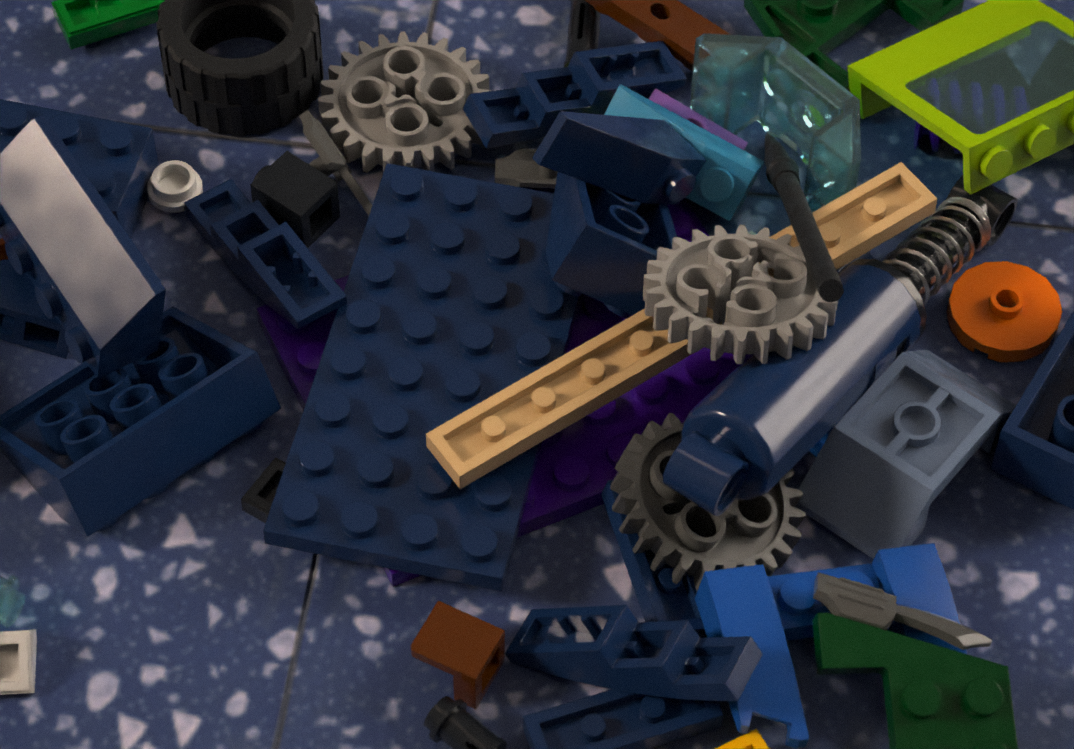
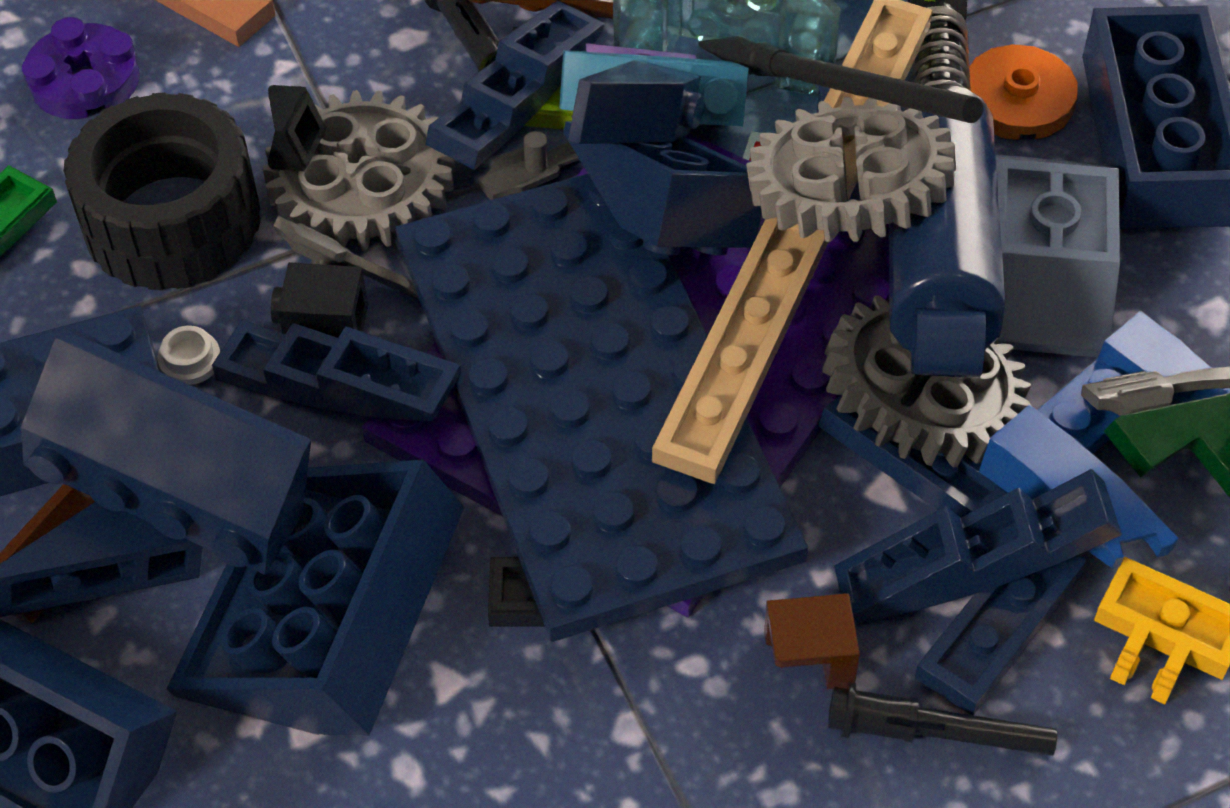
camera: 30 degrees left, 0 degrees up
(363, 44) = (296, 128): none -> black slope

